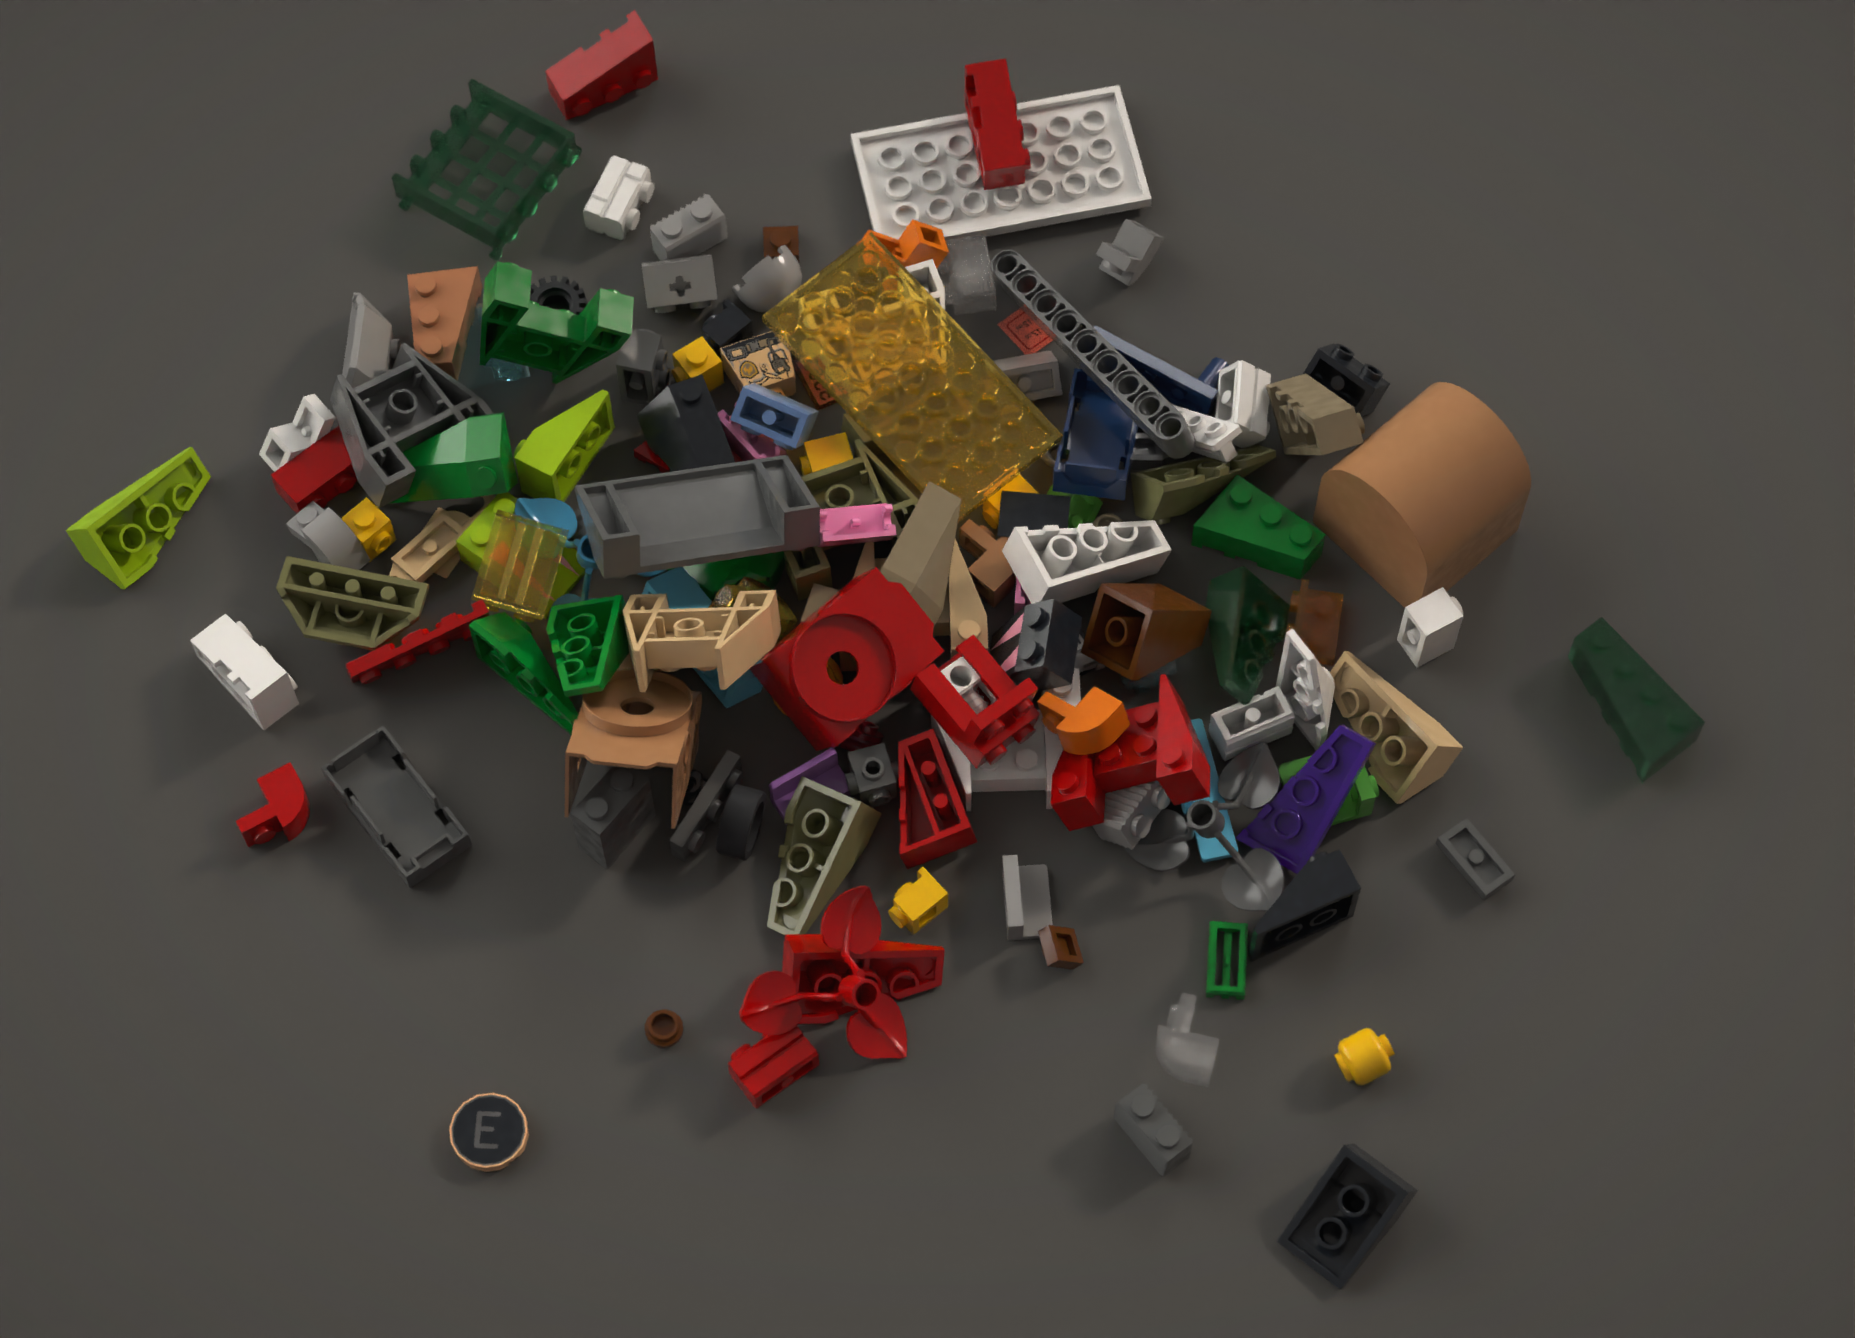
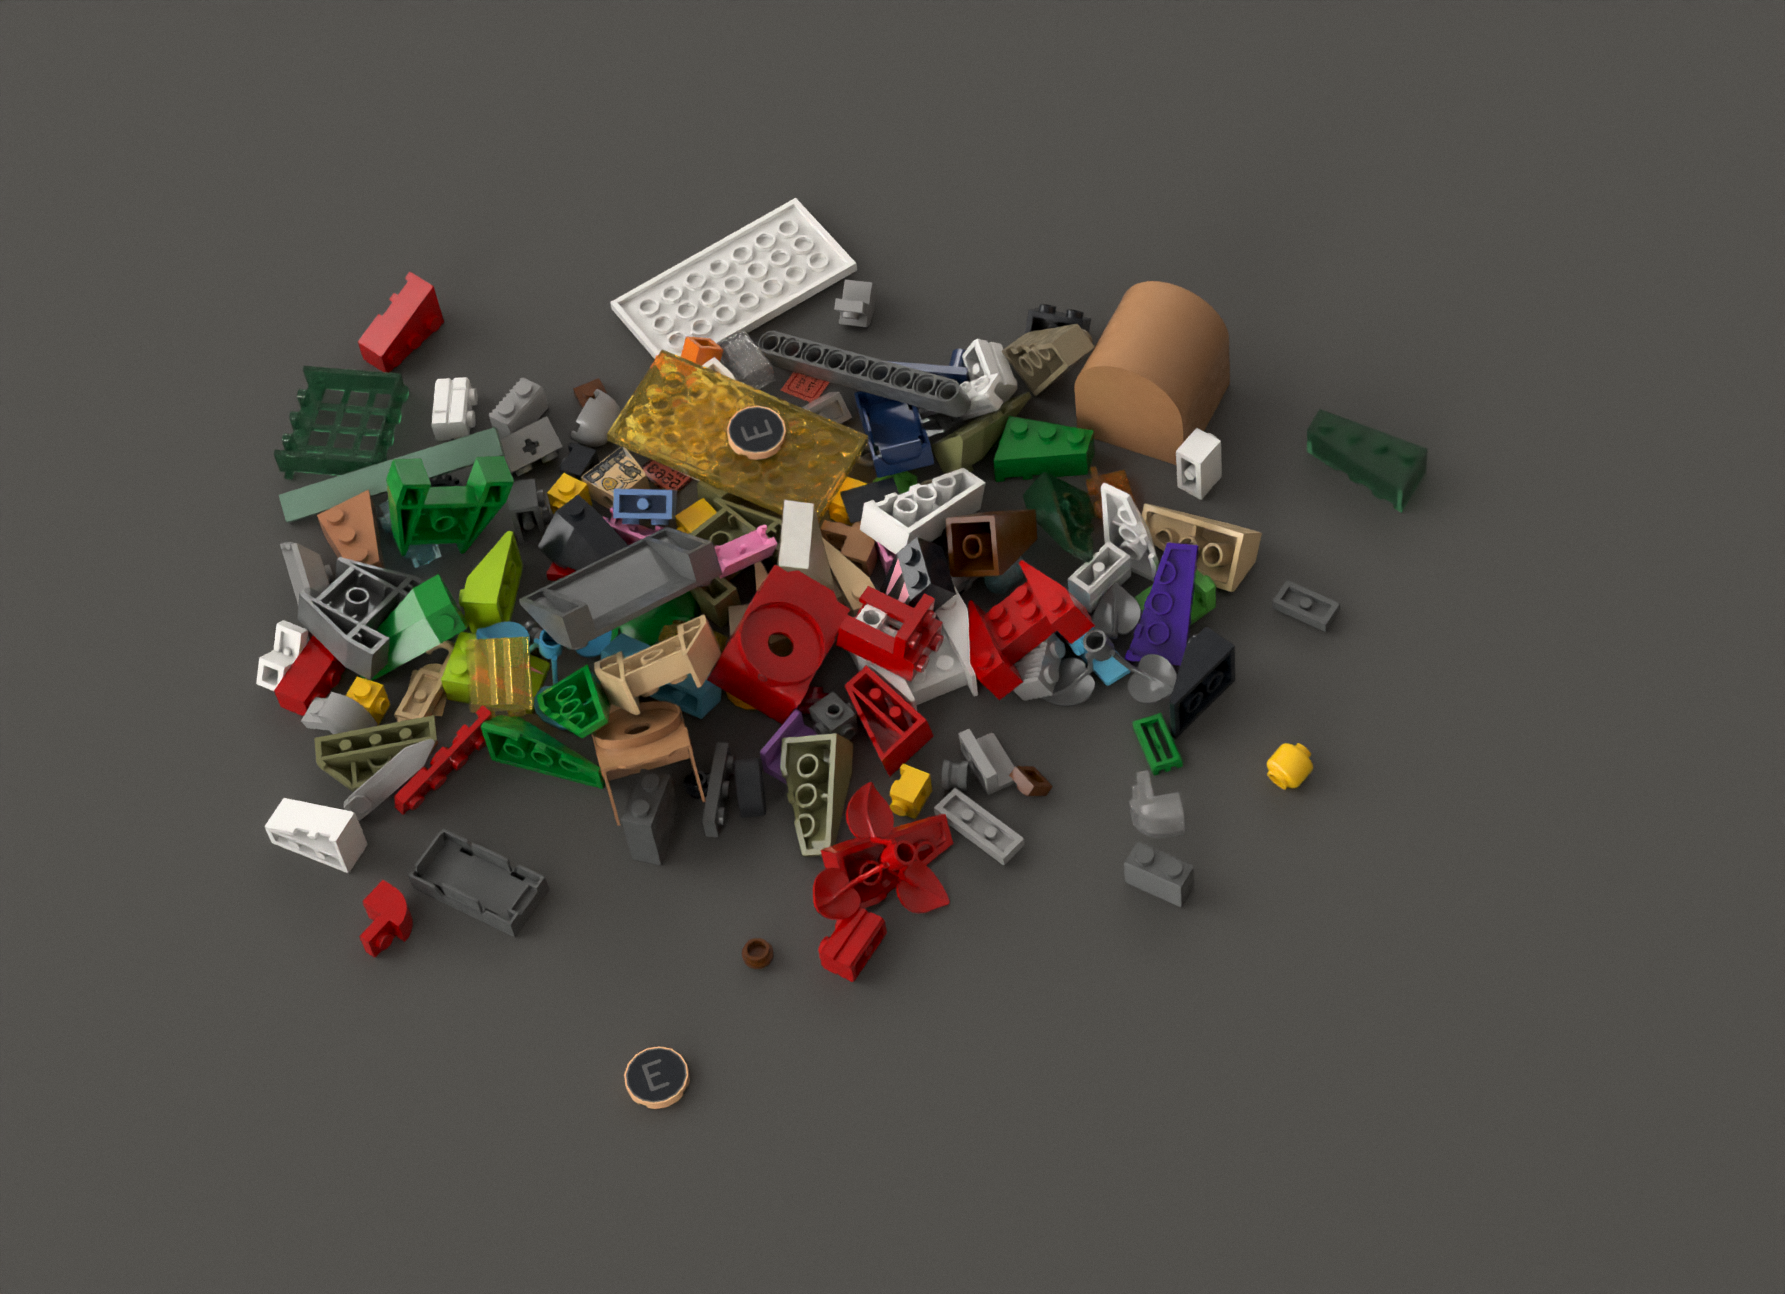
camera: 15 degrees left, 10 degrees down
(133, 525) = (181, 767): lime wedge -> none
(342, 642) = (388, 778): none -> light grey piece
(543, 258) = (436, 460): none -> sand green tile
(933, 382) = (756, 432): none -> black tile
(978, 978) = (980, 826): none -> light grey plate
(979, 903) = (956, 775): none -> dark grey wheel
(994, 124) = (717, 252): red wedge -> none
(1089, 725) = (980, 617): orange brick -> none
(1346, 1215) = (1328, 875): black slope -> none

